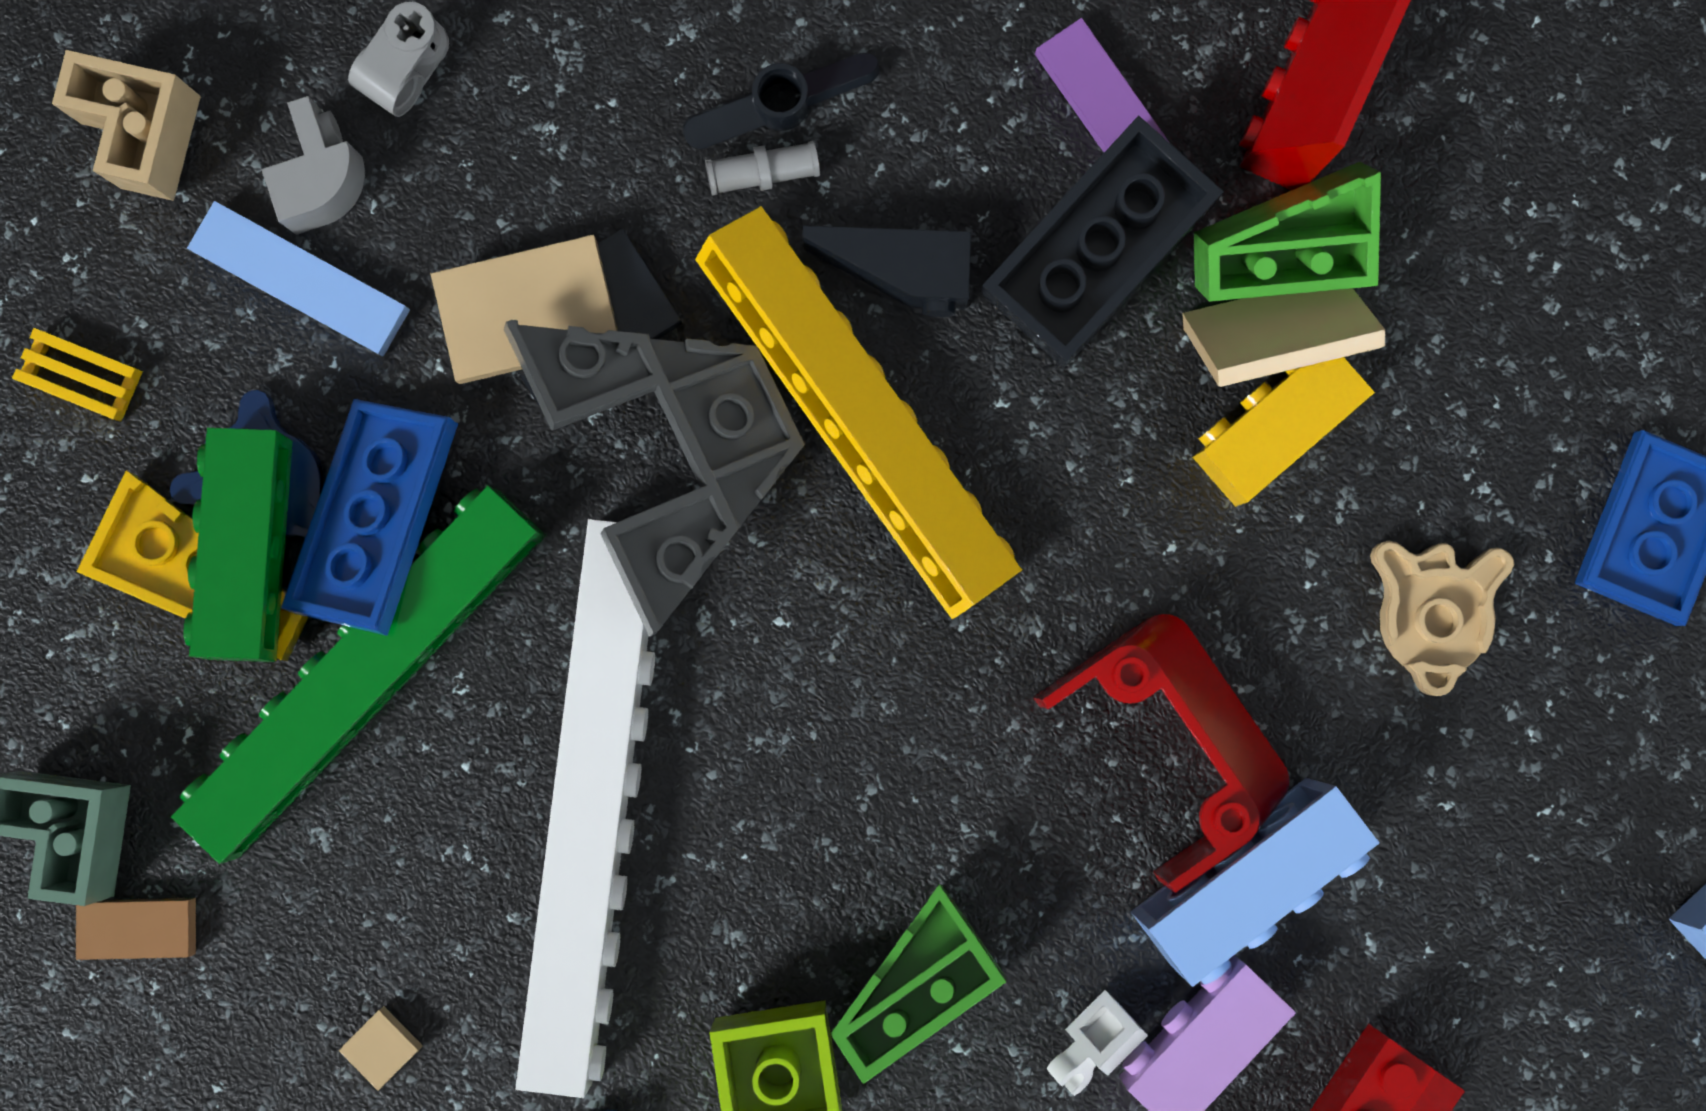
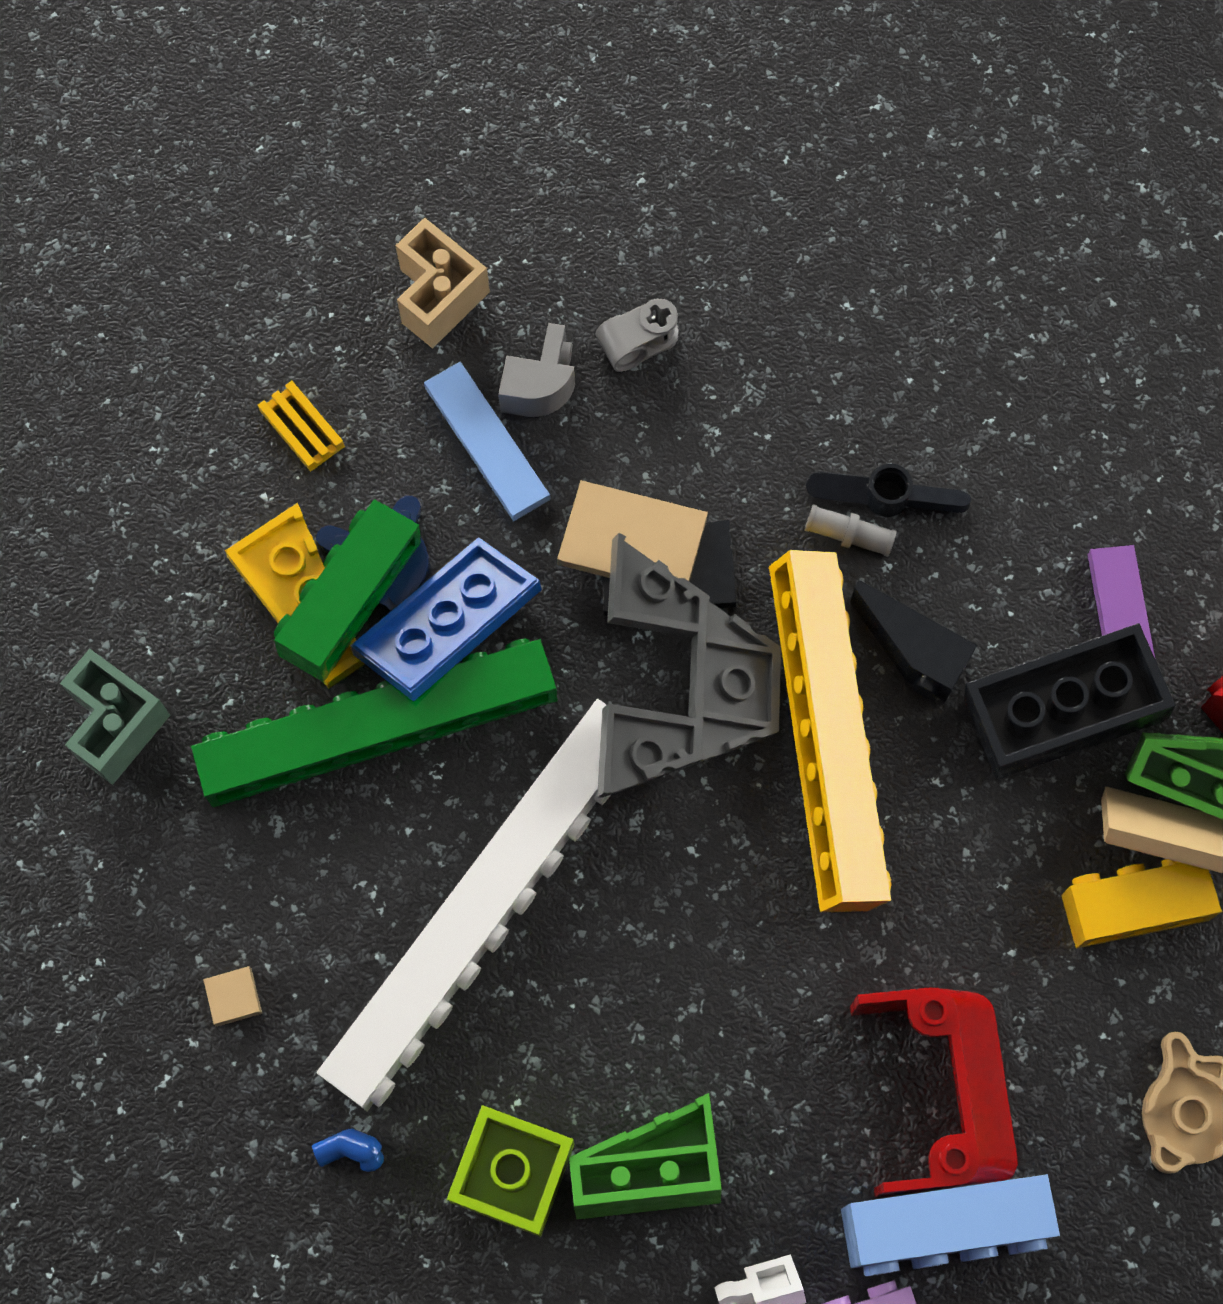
camera: 30 degrees right, 15 degrees down
(136, 929) = (114, 815): medium nougat tile -> none

